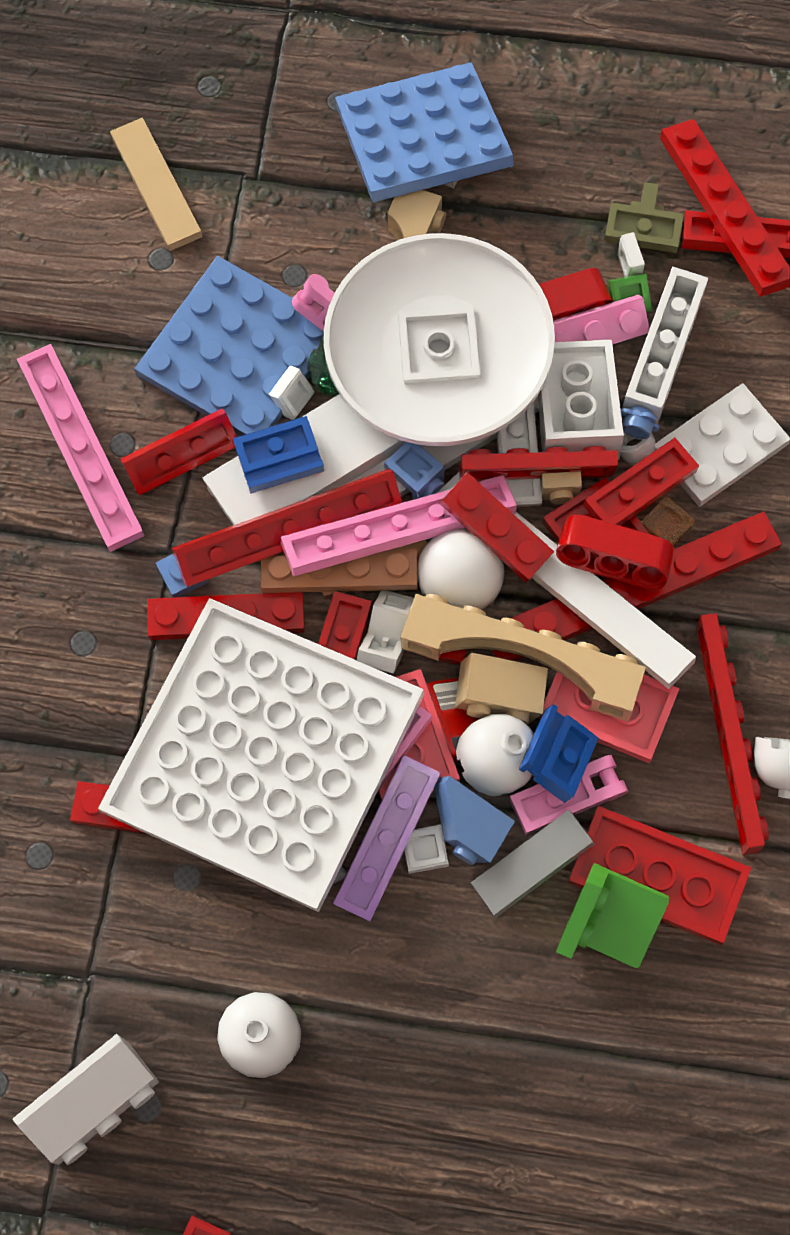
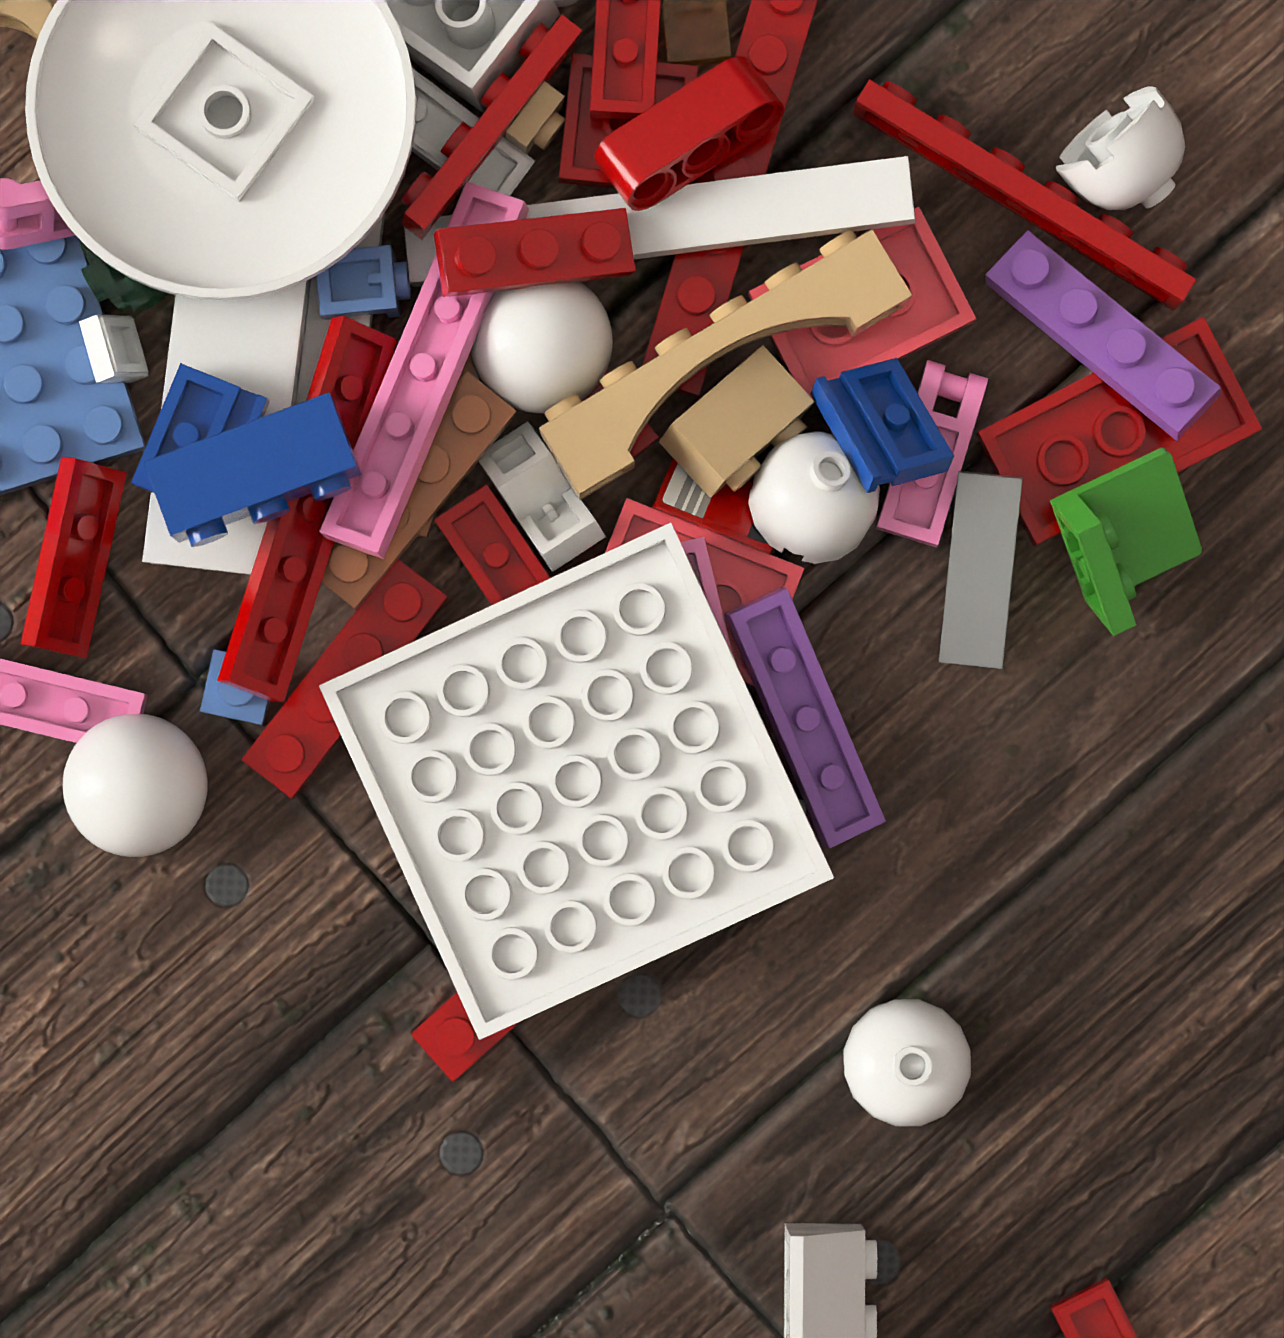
camera: 55 degrees left, 15 degrees up
(96, 562) = (135, 785): none -> white piece
(283, 480) = (253, 471): none -> blue brick
(426, 850) = (854, 679): white tile -> none
(470, 822) = (873, 603): medium blue slope -> none
(697, 826) = (1102, 335): none -> medium lavender plate

